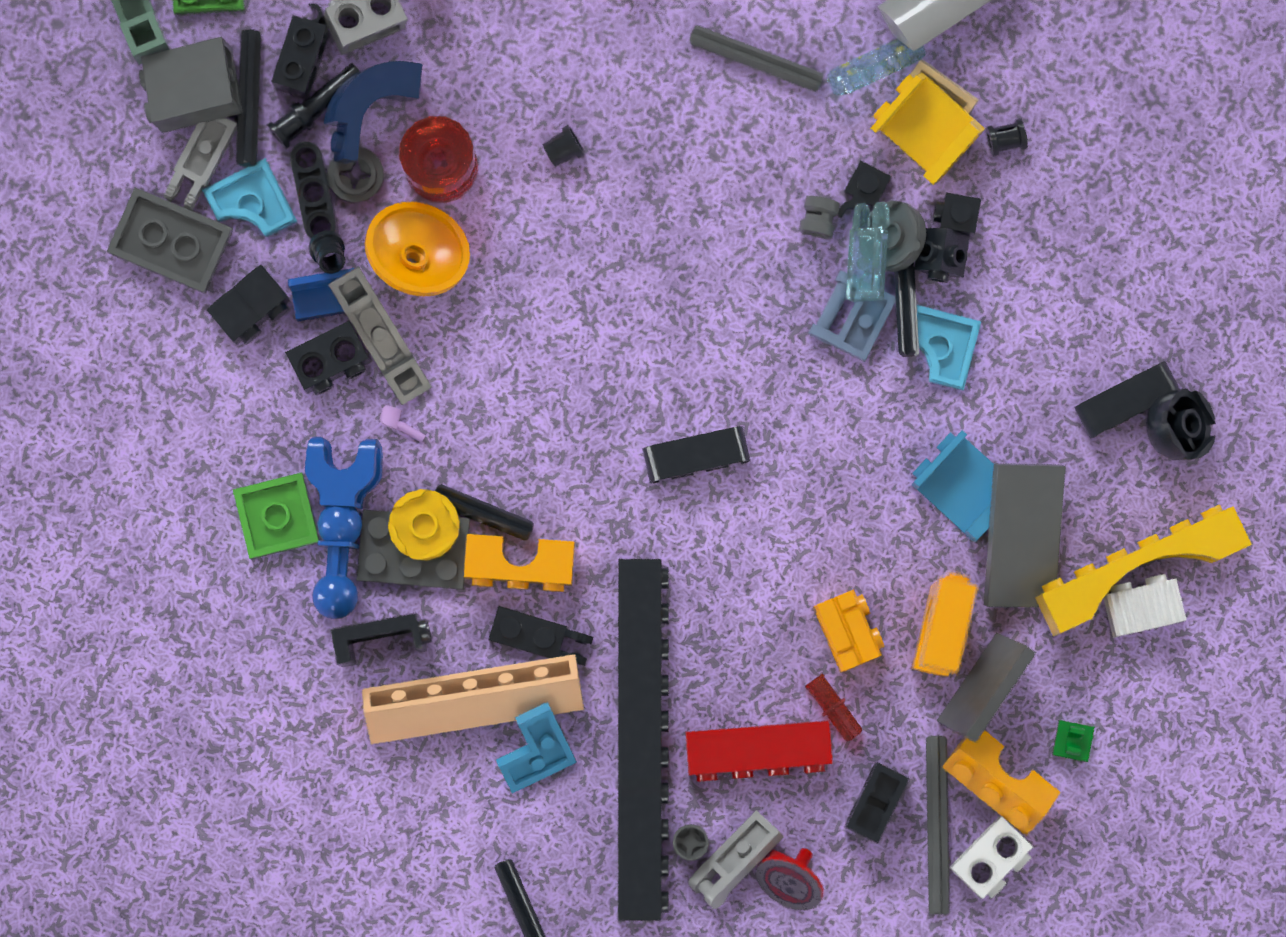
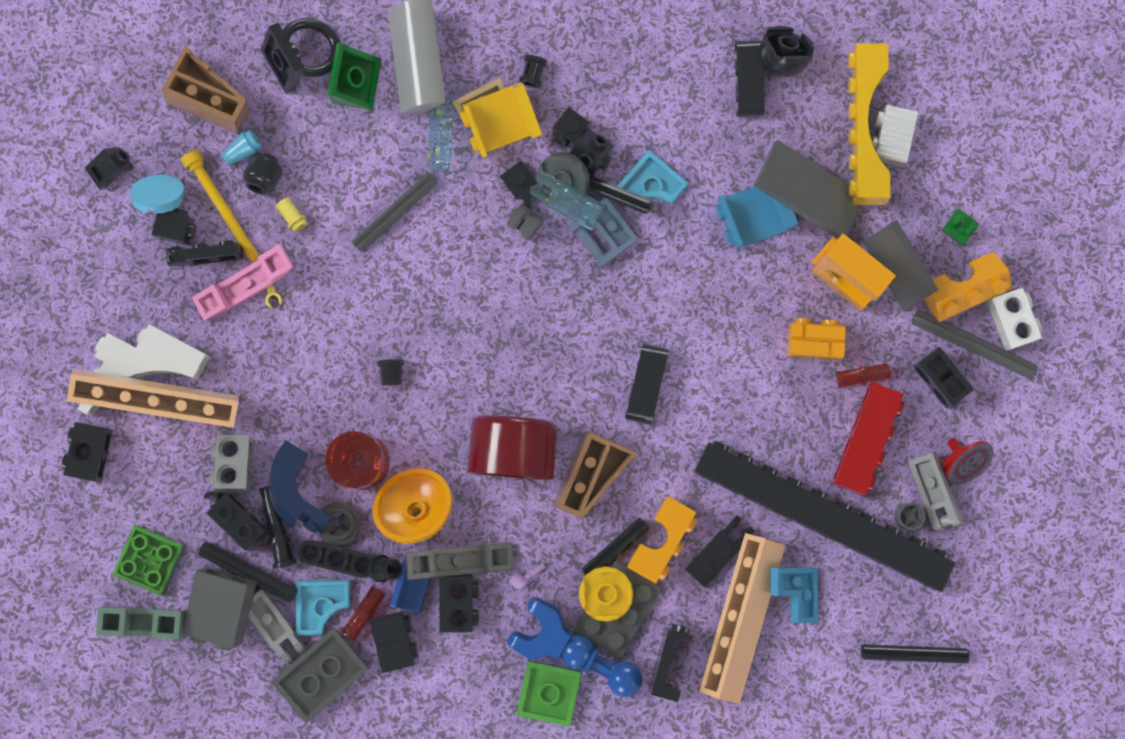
camera: 65 degrees left, 0 degrees up
(265, 255) = (363, 613): none -> clear red pin
(541, 330) = (512, 447): none -> dark red piece
(557, 438) = (590, 473): none -> medium nougat wedge

